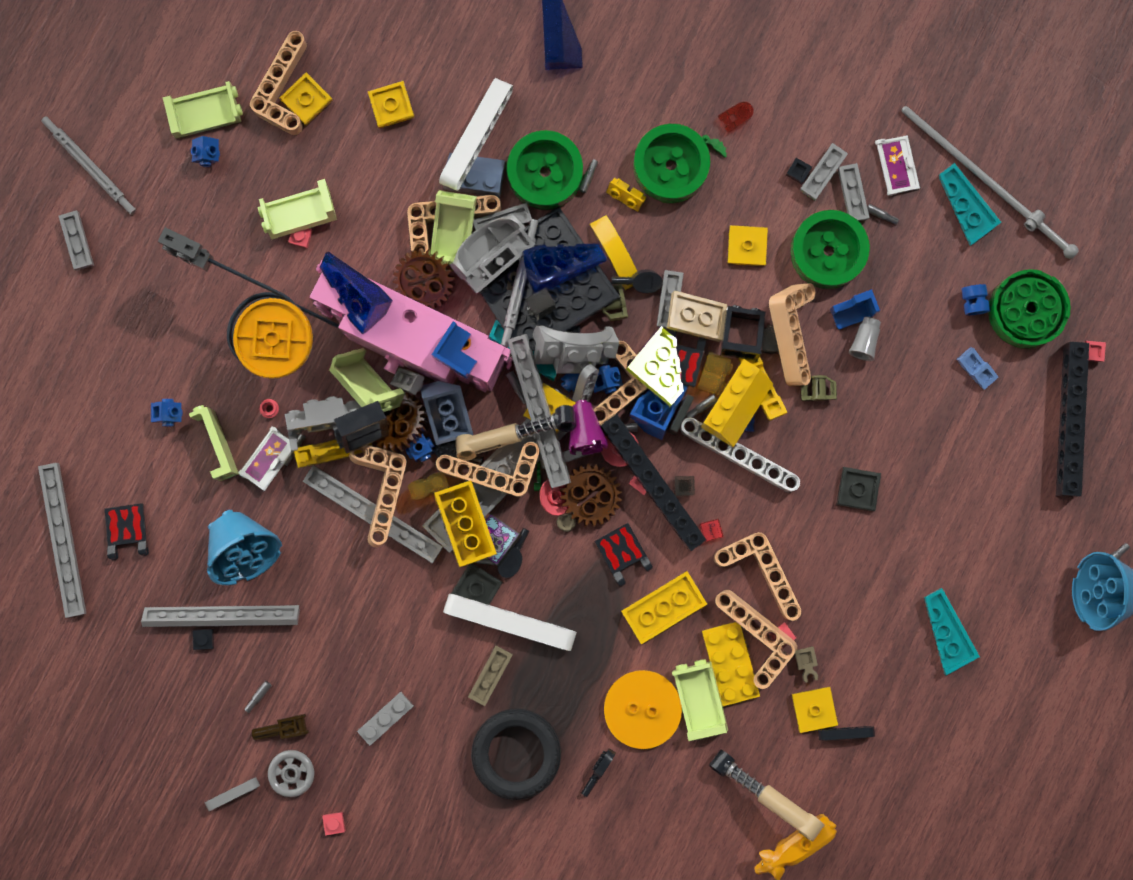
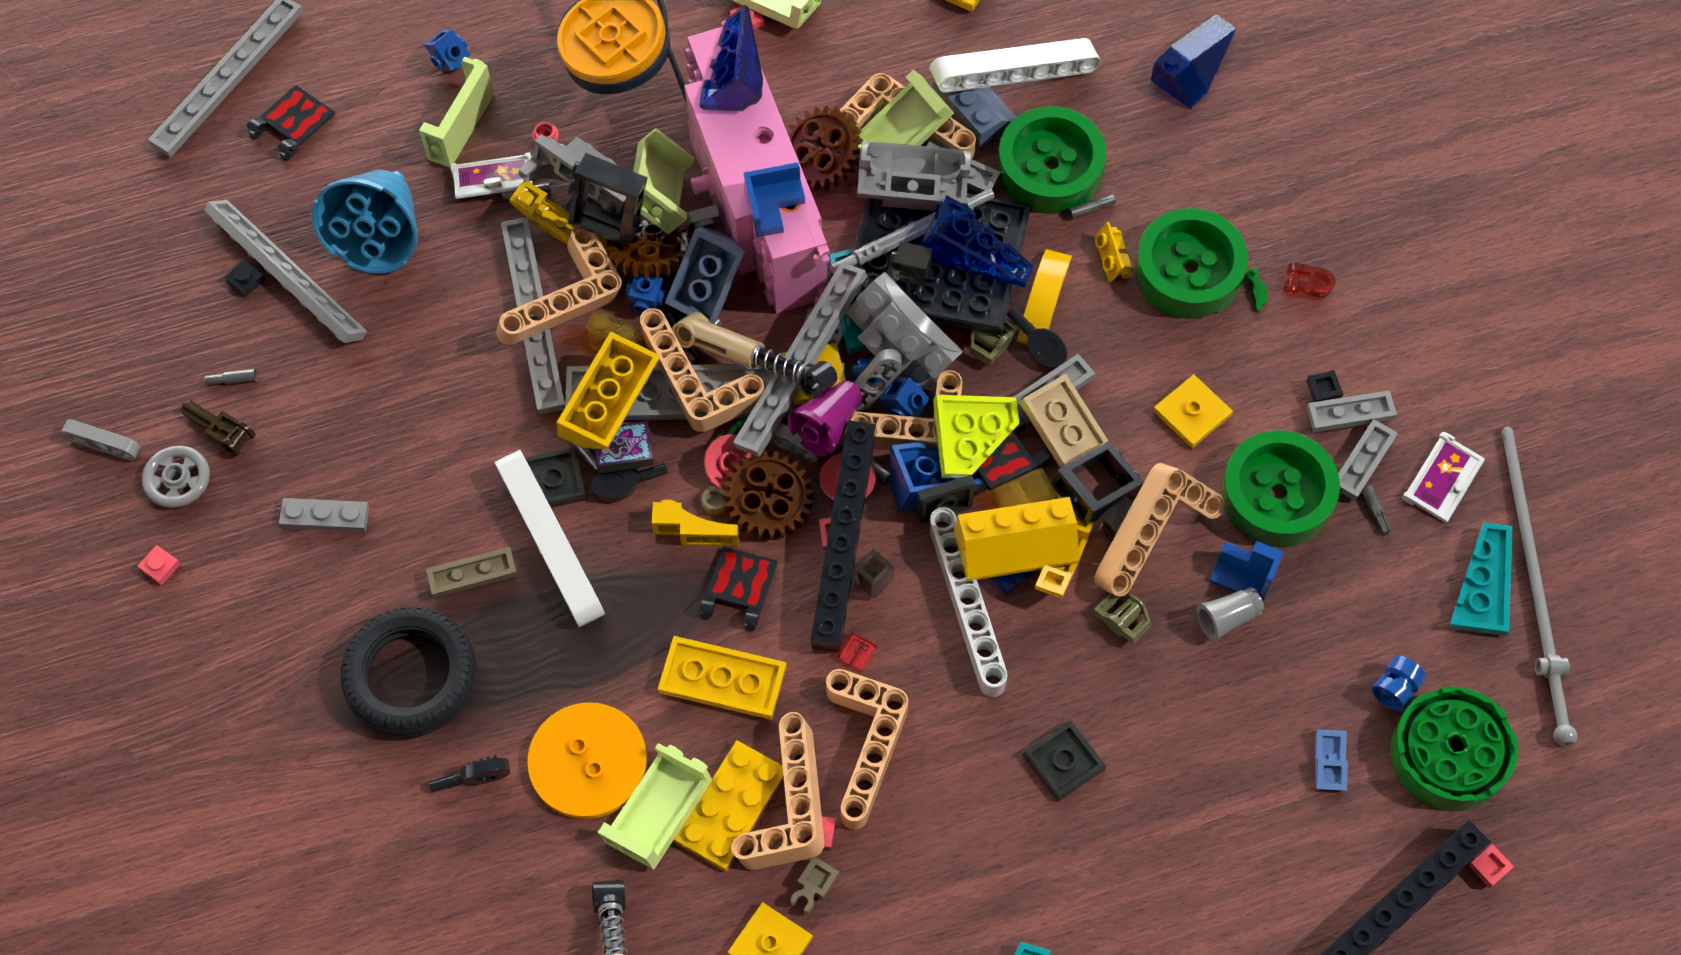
camera: 45 degrees right, 20 degrees down
(557, 552) = (671, 519): none -> yellow slope

